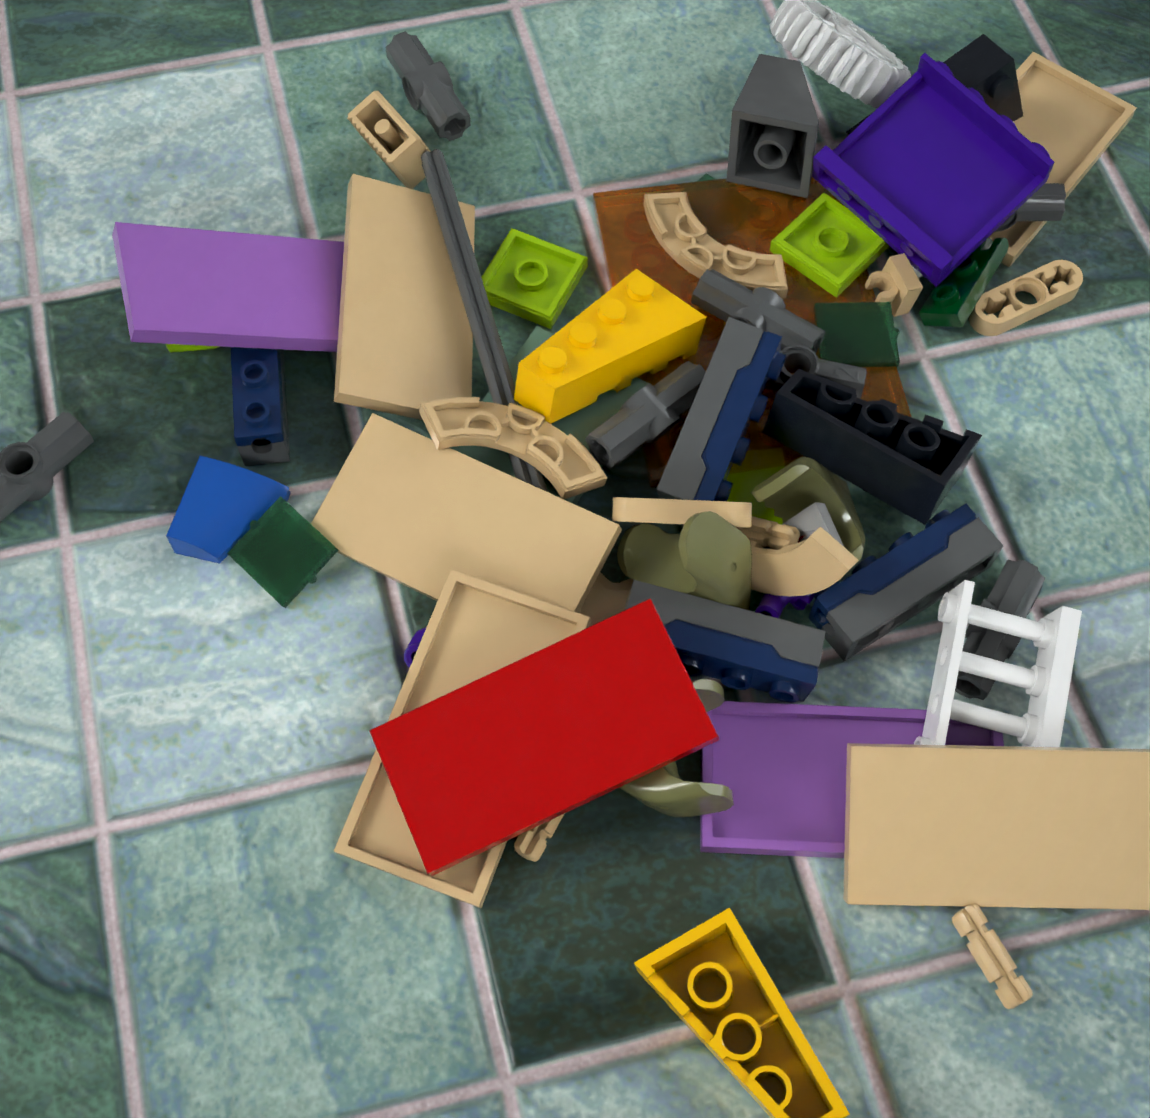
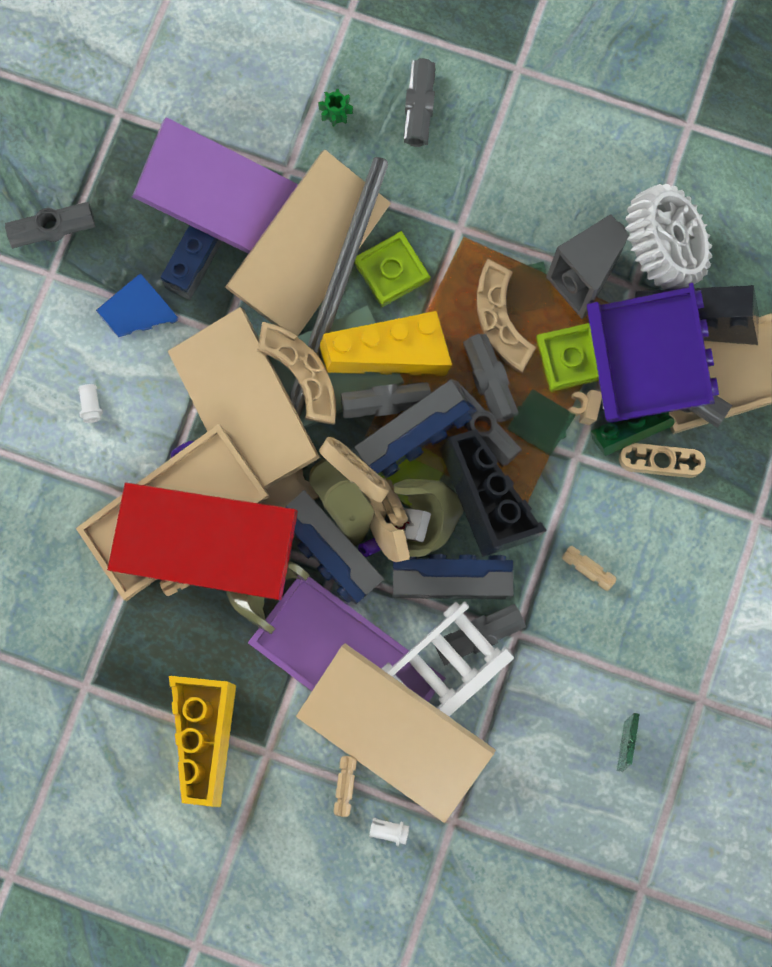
camera: 35 degrees right, 15 degrees up
(246, 677) = (89, 403): none -> white pin
(283, 552) = (151, 353): clear green piece -> none
(326, 141) = (335, 114): none -> green gear
(390, 138) = (369, 131): tan brick -> none
(1053, 466) = (589, 568): none -> tan axle
(1104, 975) = (389, 831): none -> white pin

